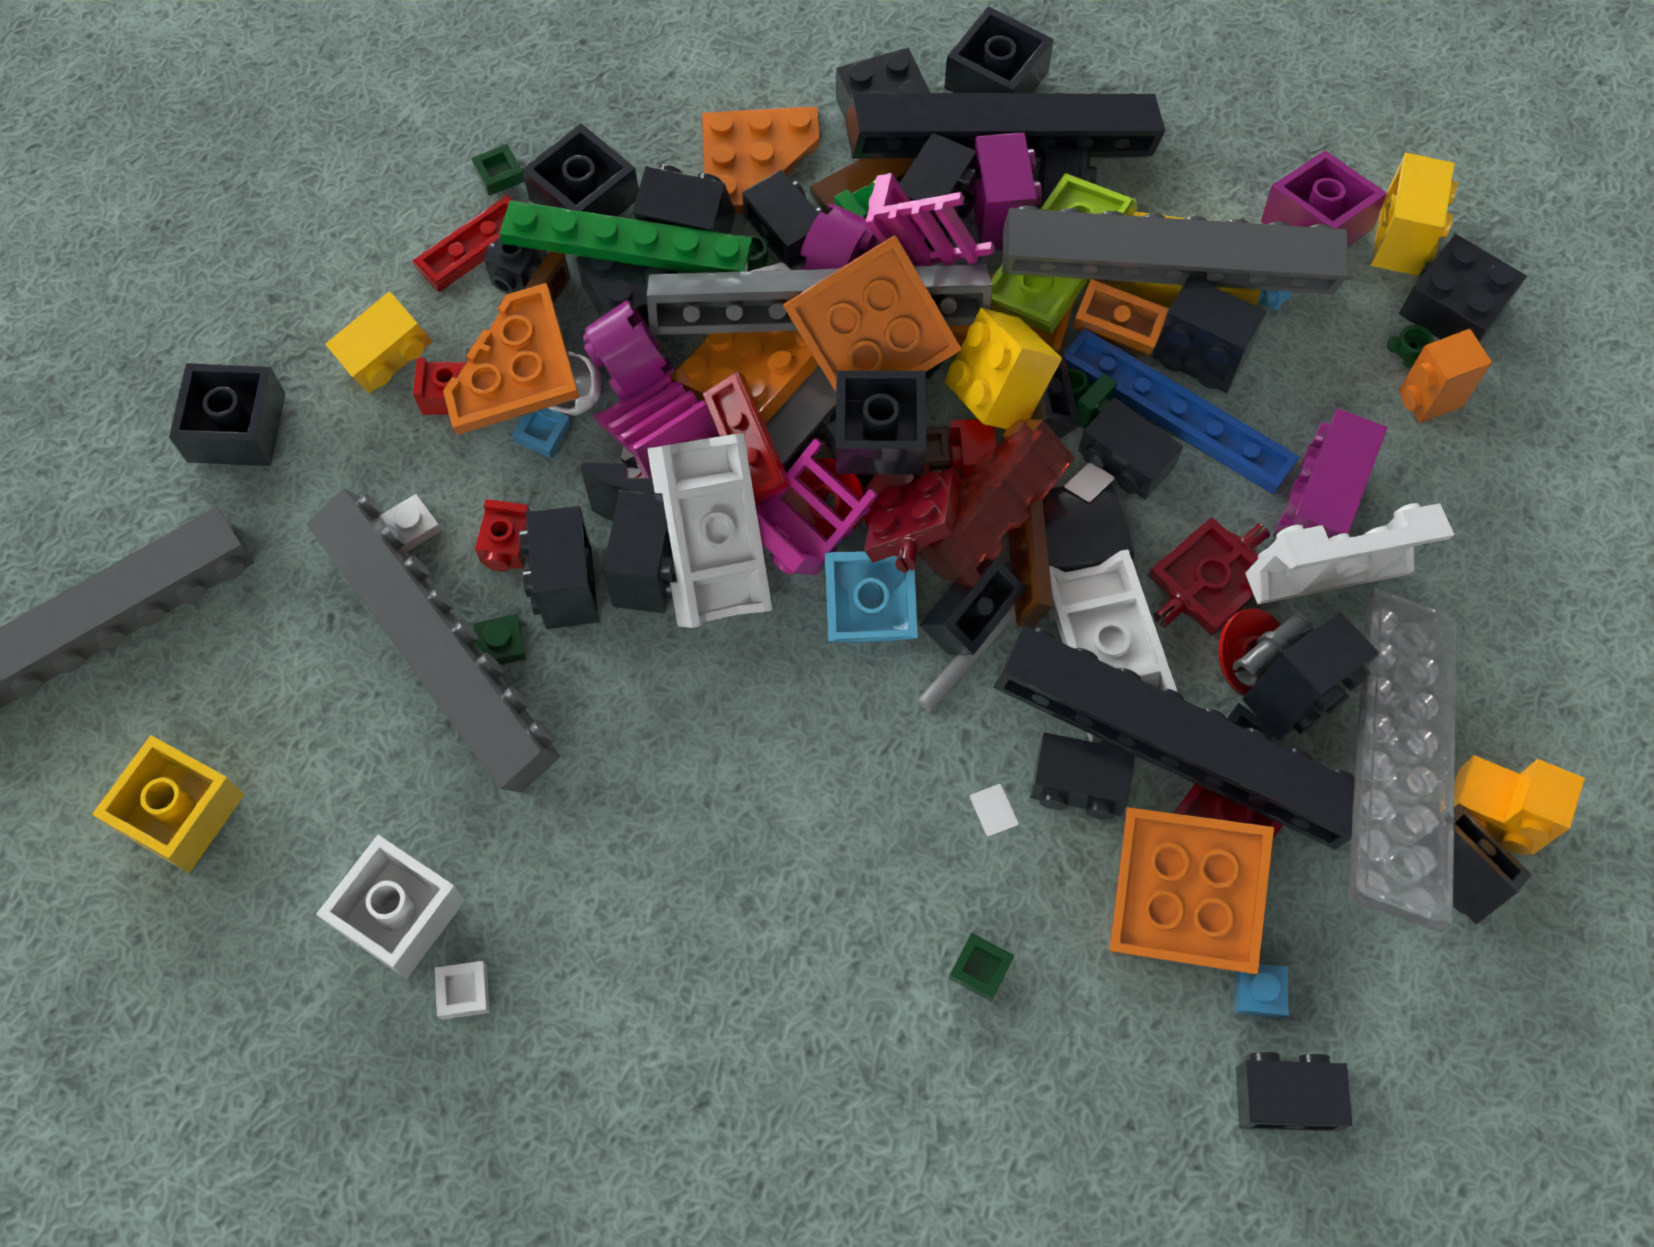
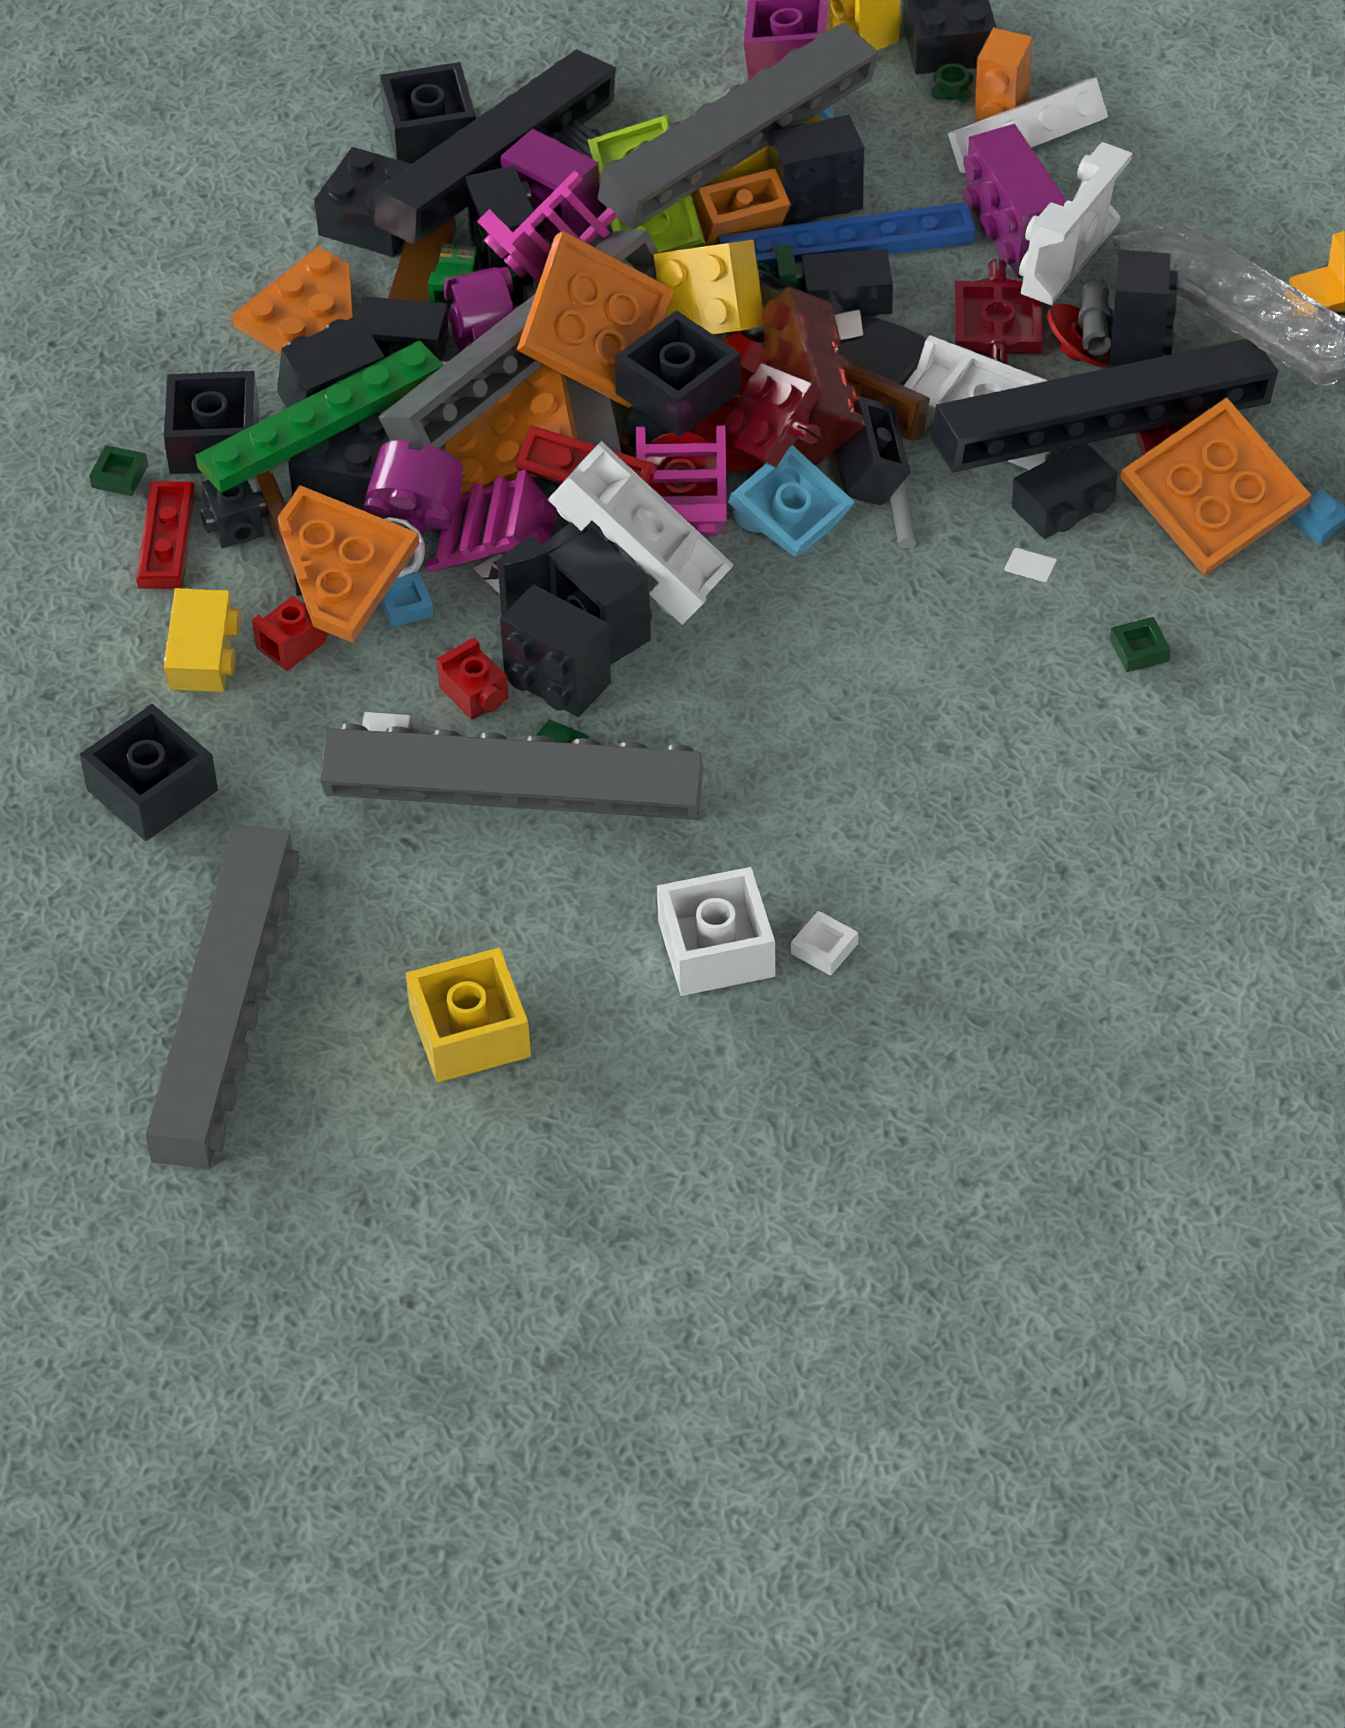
camera: 45 degrees left, 15 degrees down
(1436, 431) = (1041, 118): none -> white plate

